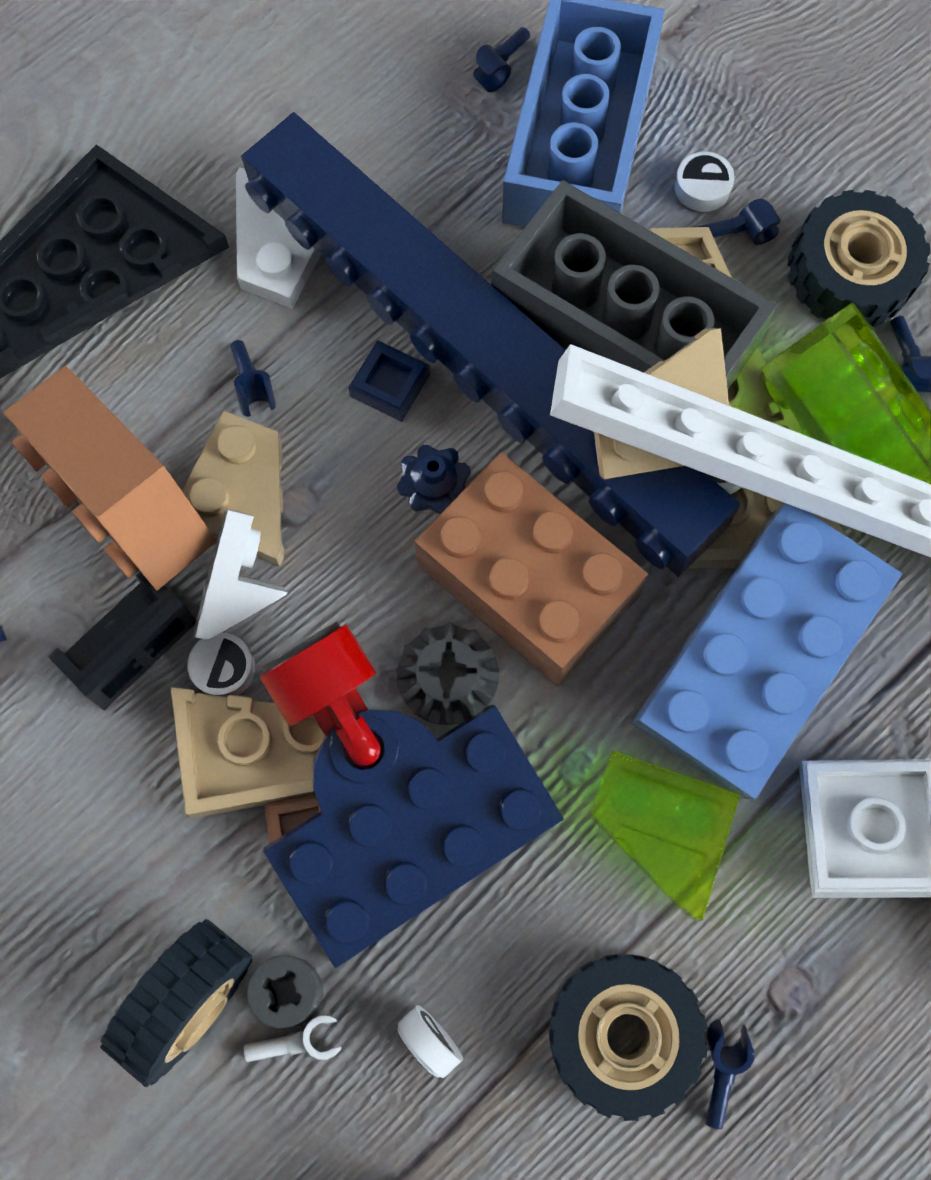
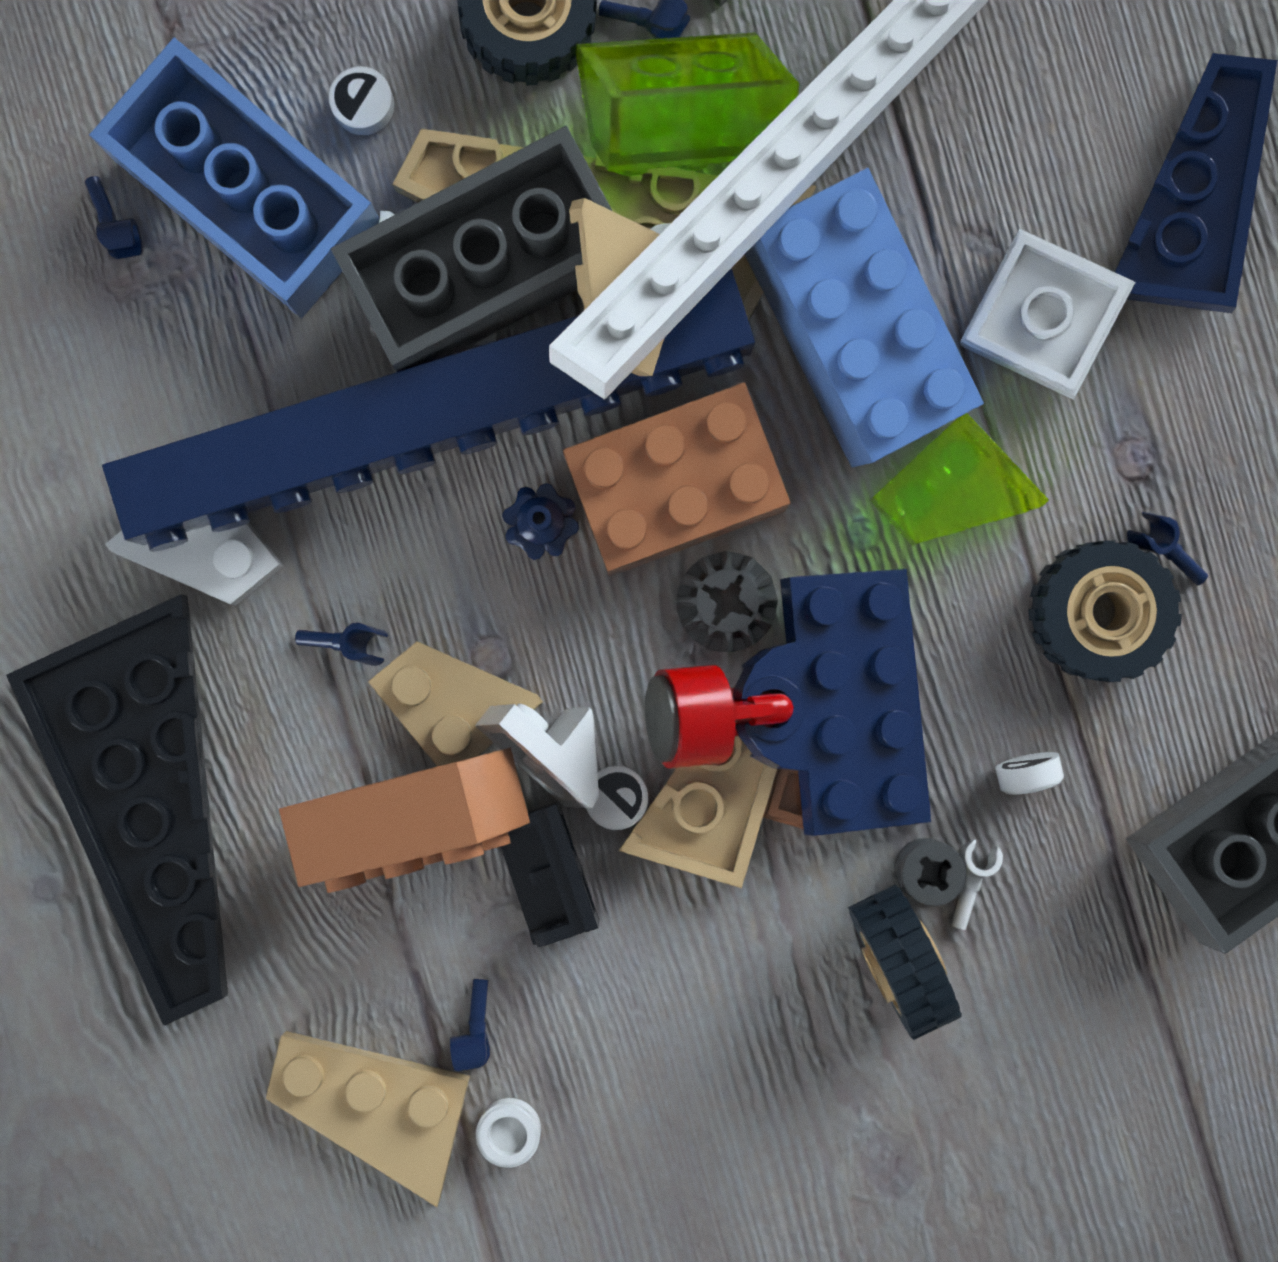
camera: 65 degrees left, 15 degrees up
(389, 380) = (413, 511): dark blue tile -> none
(756, 218) = (432, 75): dark blue hand -> none

